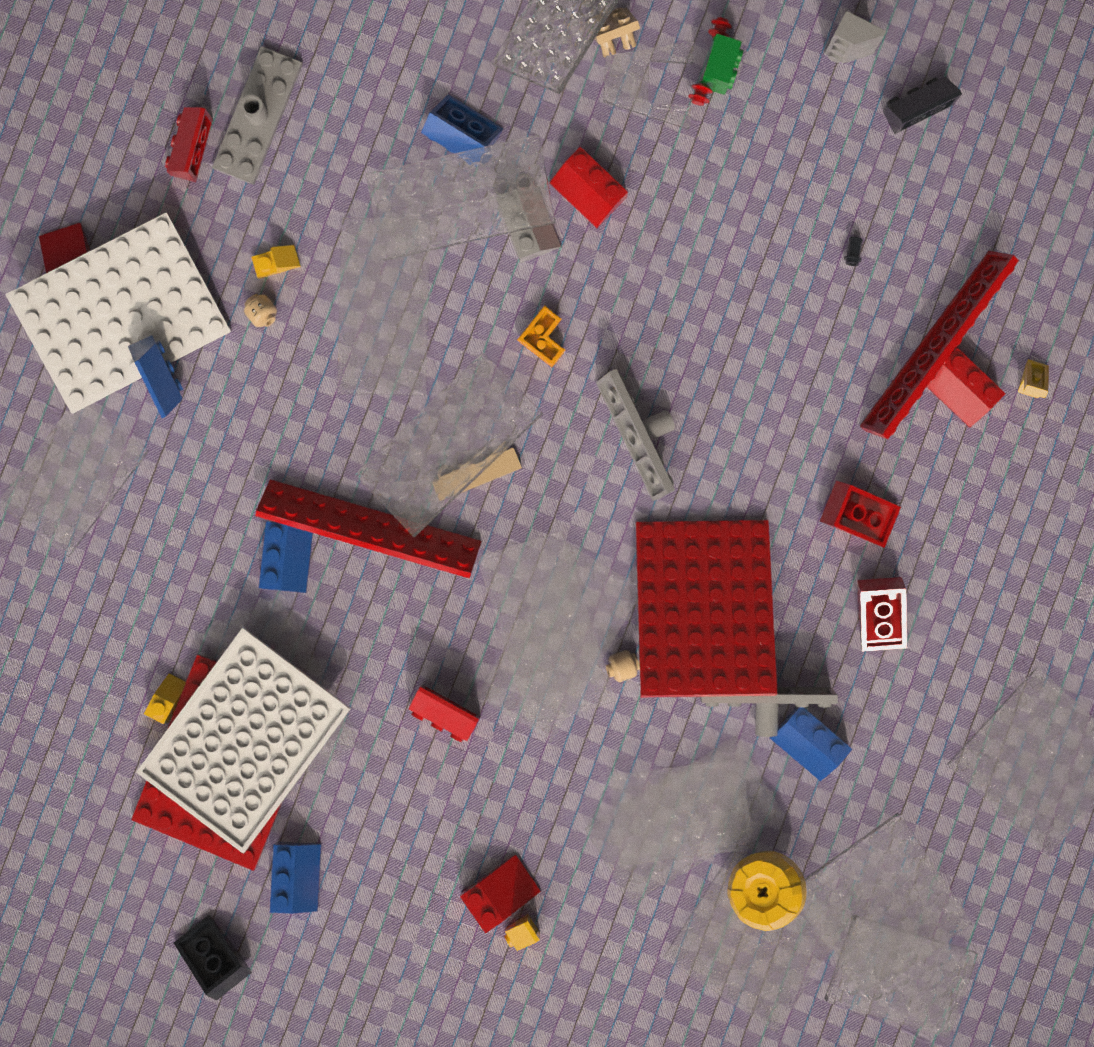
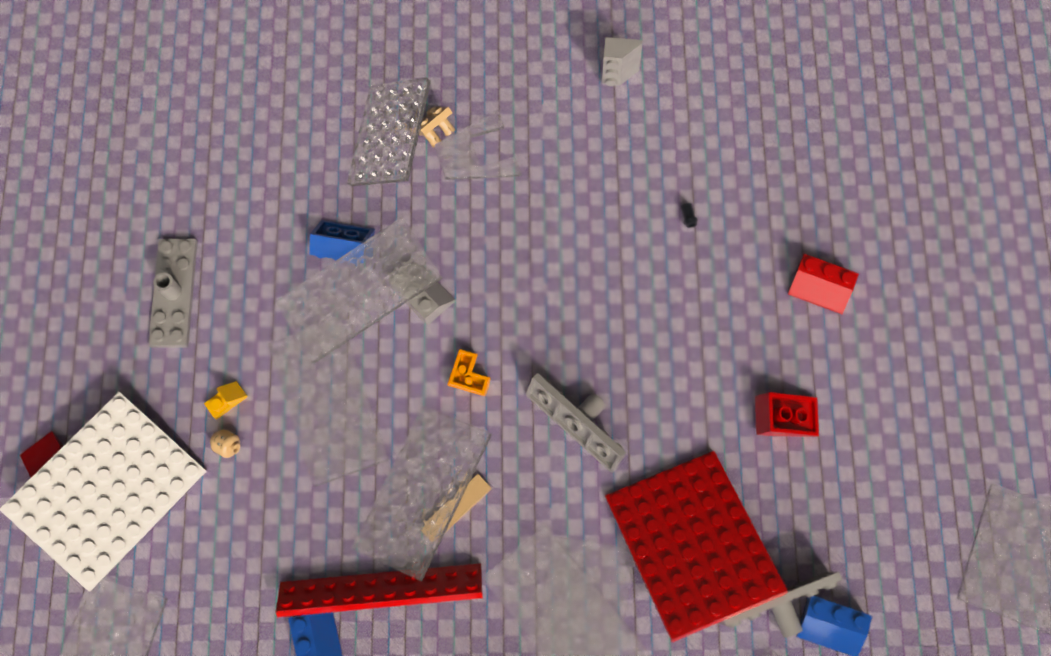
camera: 15 degrees left, 15 degrees down
(156, 374) = (152, 528): blue slope -> none
(189, 143) = (123, 333): red slope -> none
(588, 187) = (459, 246): red slope -> none
(622, 666) = (644, 623): tan head -> none
(721, 63) = (526, 117): green brick -> none
(882, 613) = (843, 490): red slope -> none
(921, 103) = (692, 89): black slope -> none
(939, 344) = (787, 259): red plate -> none
(1034, 379) = (875, 257): yellow slope -> none

